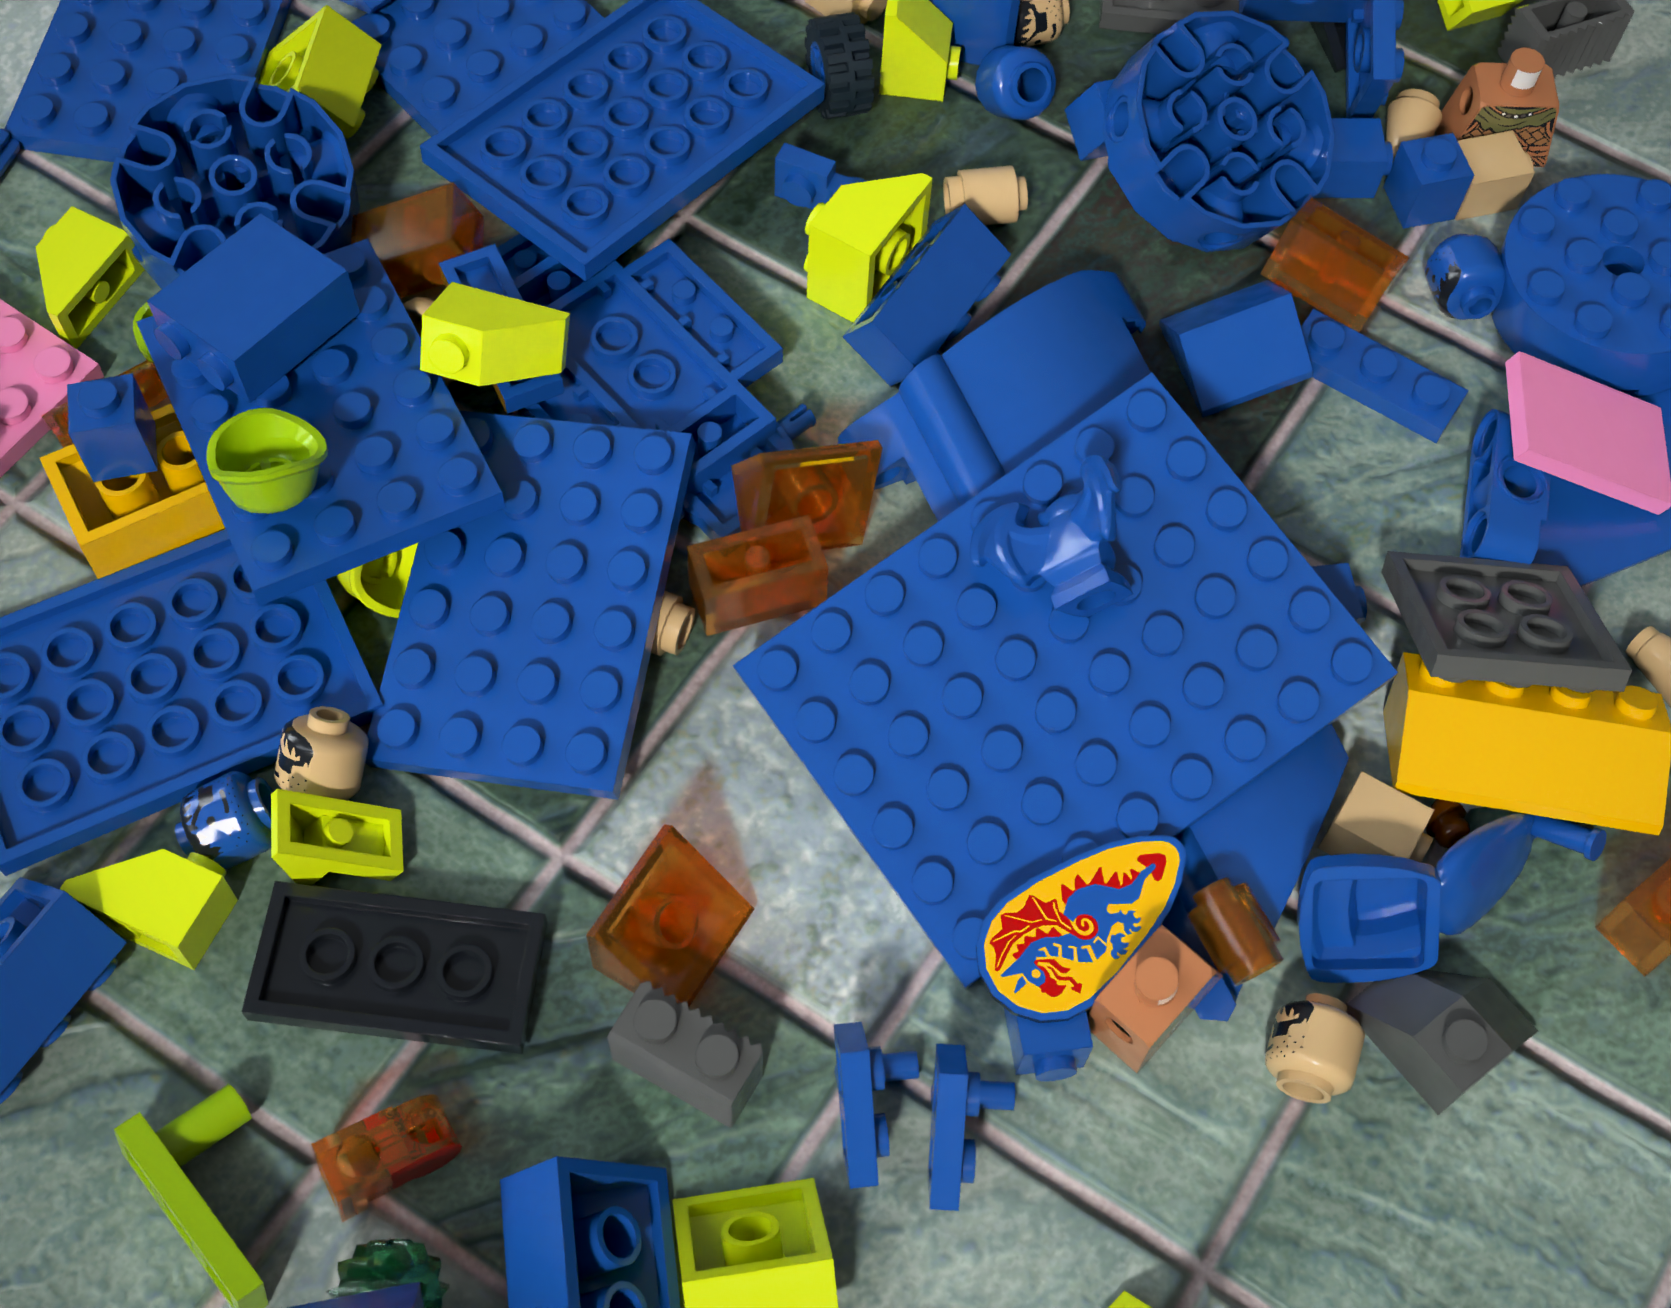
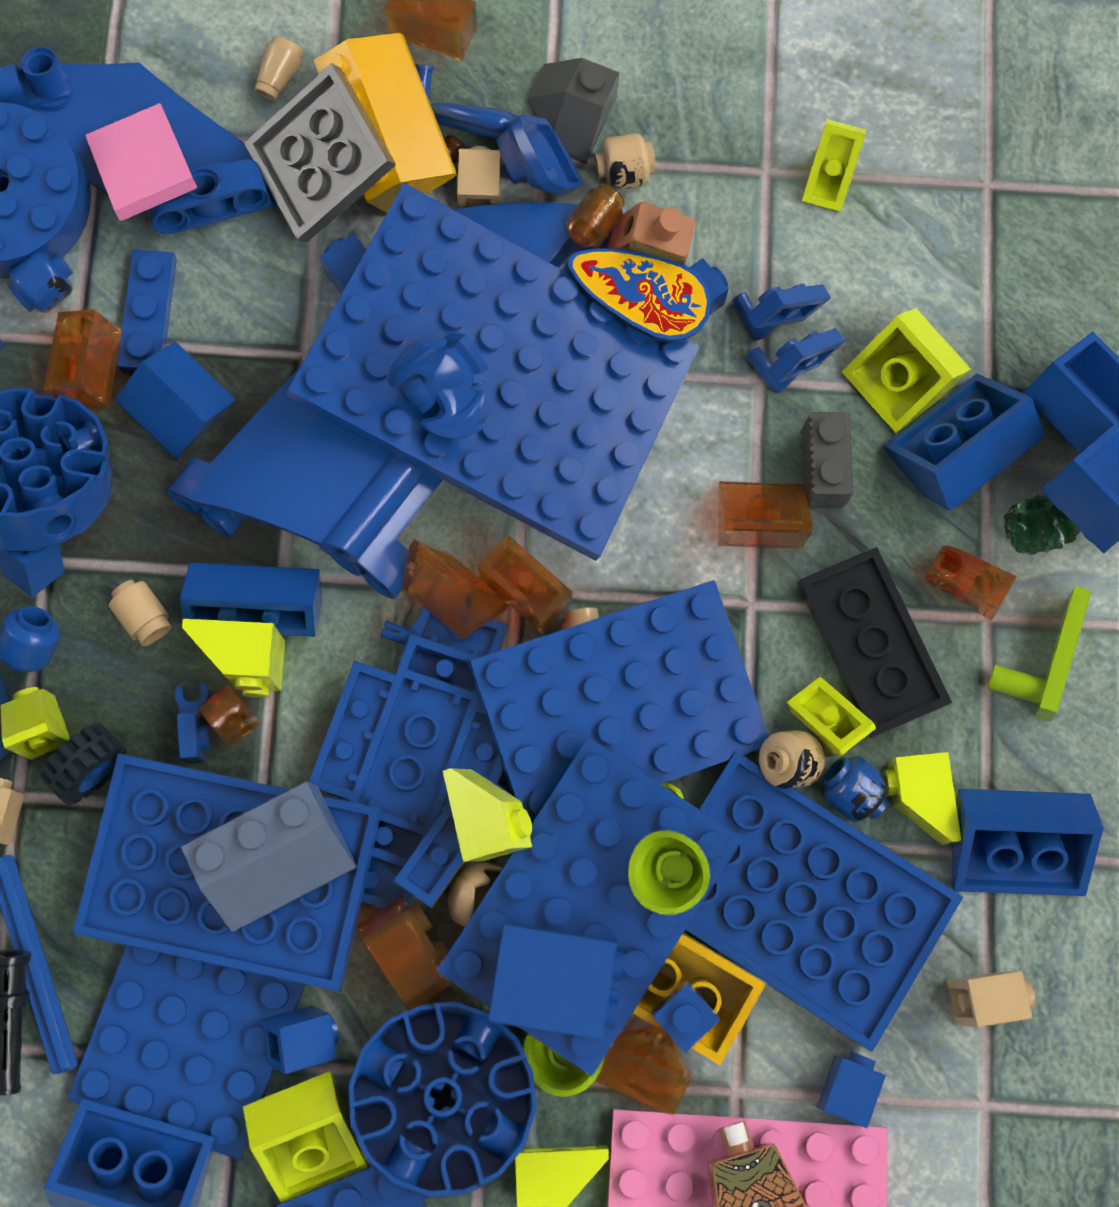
camera: 120 degrees left, 15 degrees up
(404, 114) = (300, 1039): none -> blue brick
(606, 137) = (269, 856): none -> sand blue slope
(798, 189) = (229, 715): none -> clear orange leg

